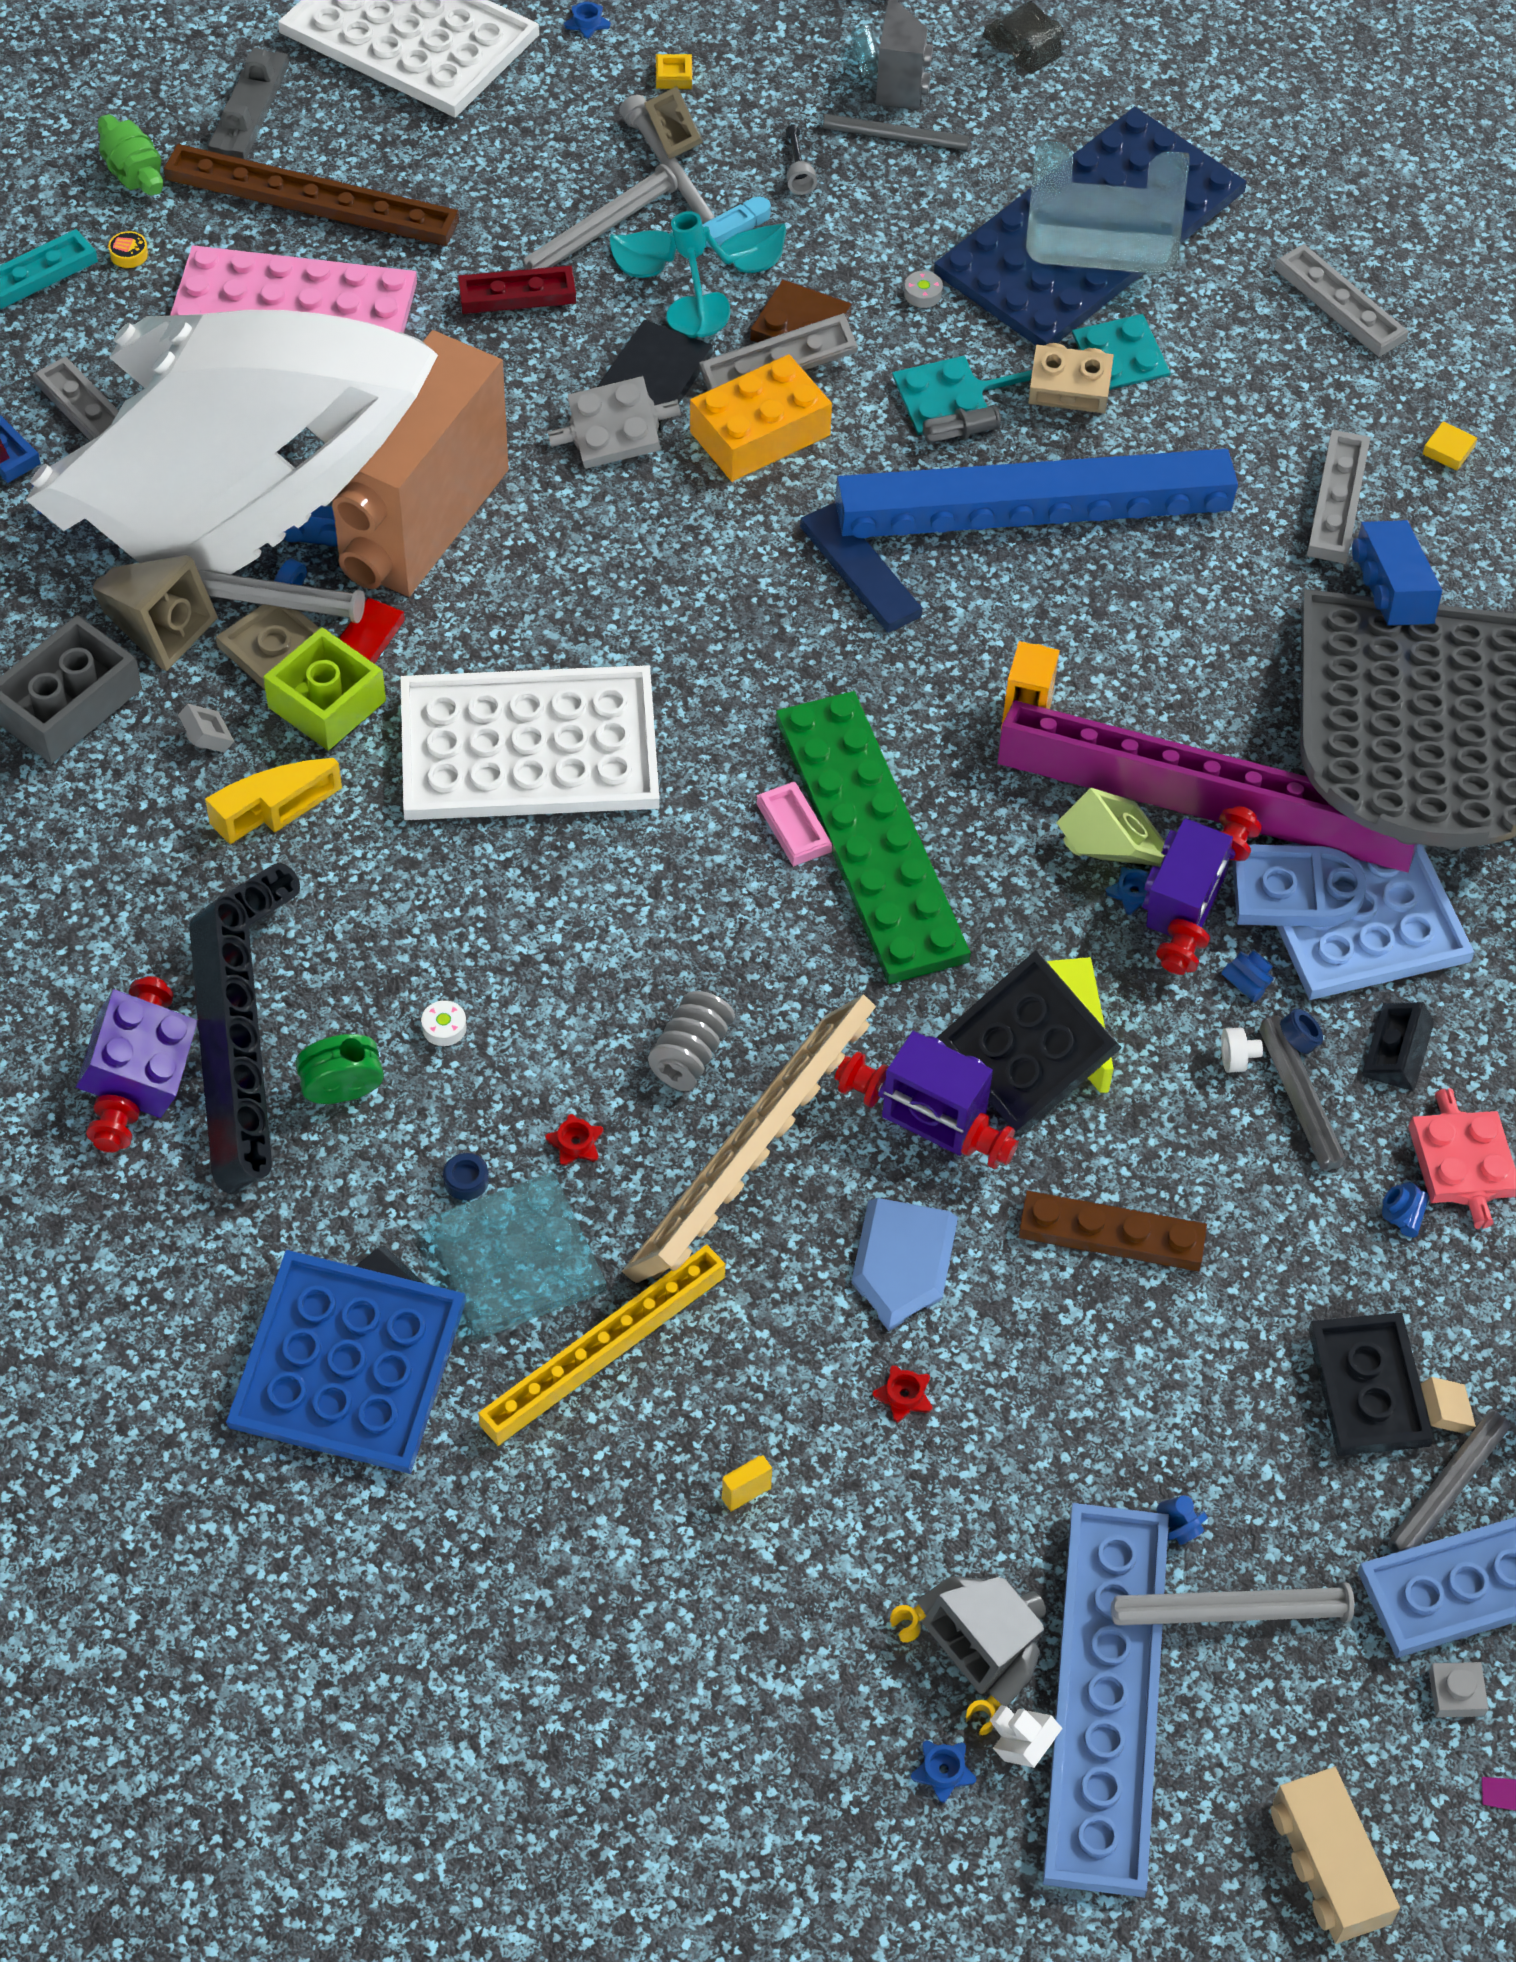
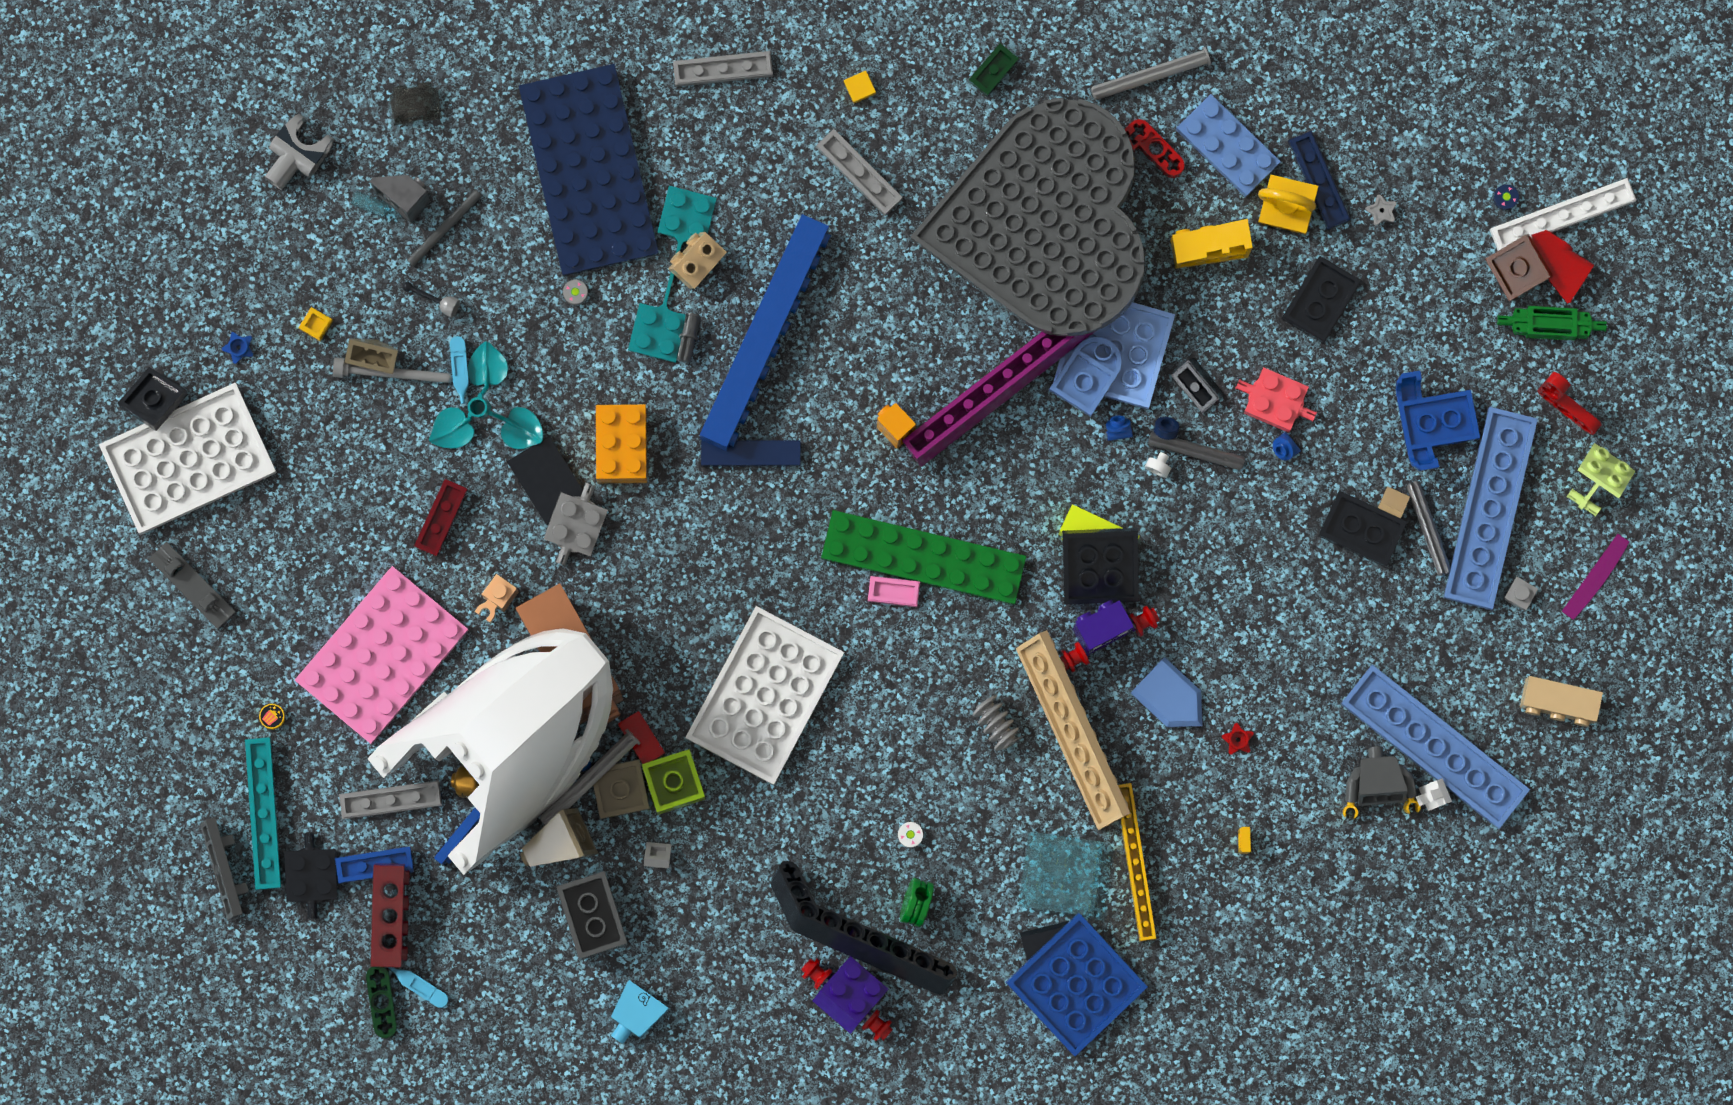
camera: 60 degrees left, 25 degrees up
(130, 155) = (203, 679): bright green piece -> none
(272, 797) = (723, 845): yellow slope -> none
(312, 194) = (294, 591): reddish brown plate -> none
(466, 1176) = (1003, 873): dark blue tile -> none
(572, 1129) = (1006, 807): red plate -> none
(603, 219) = (415, 440): light grey axle -> none
(794, 308) = (557, 374): reddish brown plate -> none
(807, 346) = (583, 406): light grey tile -> none
(948, 1756) = (1428, 832): blue plate -> none
(1106, 223) = (607, 169): clear light blue windscreen -> none
(1111, 830) = (1004, 438): yellowish green slope -> none
(1113, 1231) = (1214, 590): reddish brown plate -> none
(1122, 890) = (1032, 442): blue plate -> none
(1183, 1521) = (1378, 658): blue plate -> none
(1190, 880) = (1061, 426): dark purple brick -> none
(1234, 1606) = (1431, 666): light grey axle -> none
(1397, 572) = (934, 185): blue brick -> none

